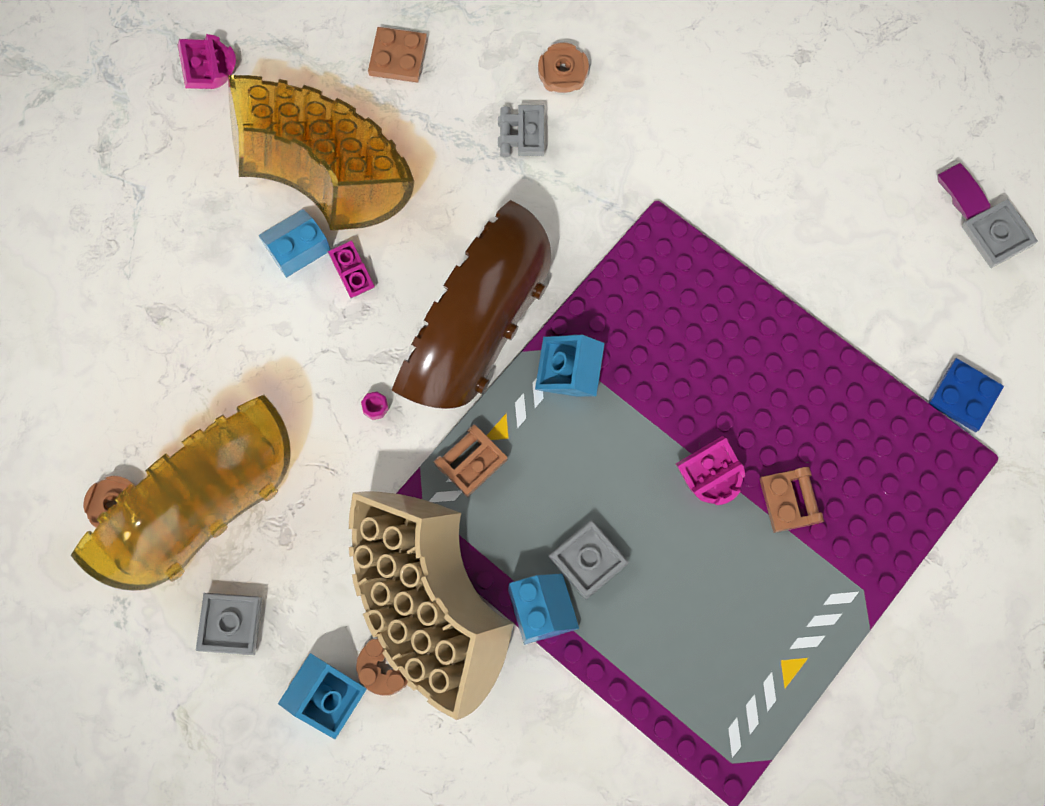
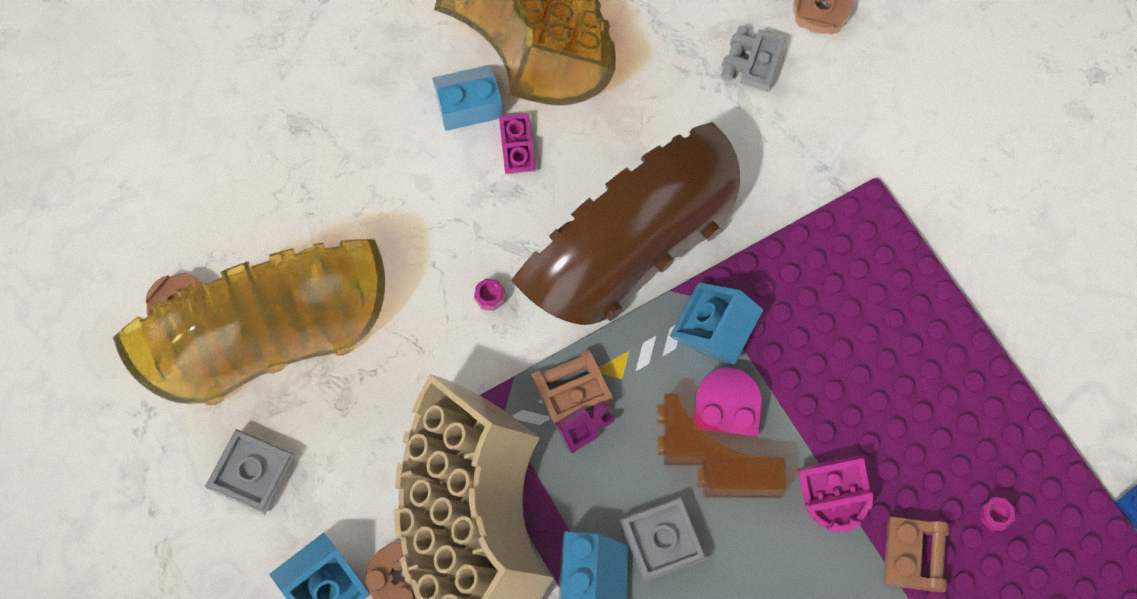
camera: 20 degrees right, 5 degrees down
(490, 489) = (580, 426): none -> magenta plate
(601, 429) = (728, 402): none -> dark pink slope
(616, 485) = (723, 470): none -> clear orange arch
(843, 445) = (997, 514): none -> dark pink tile

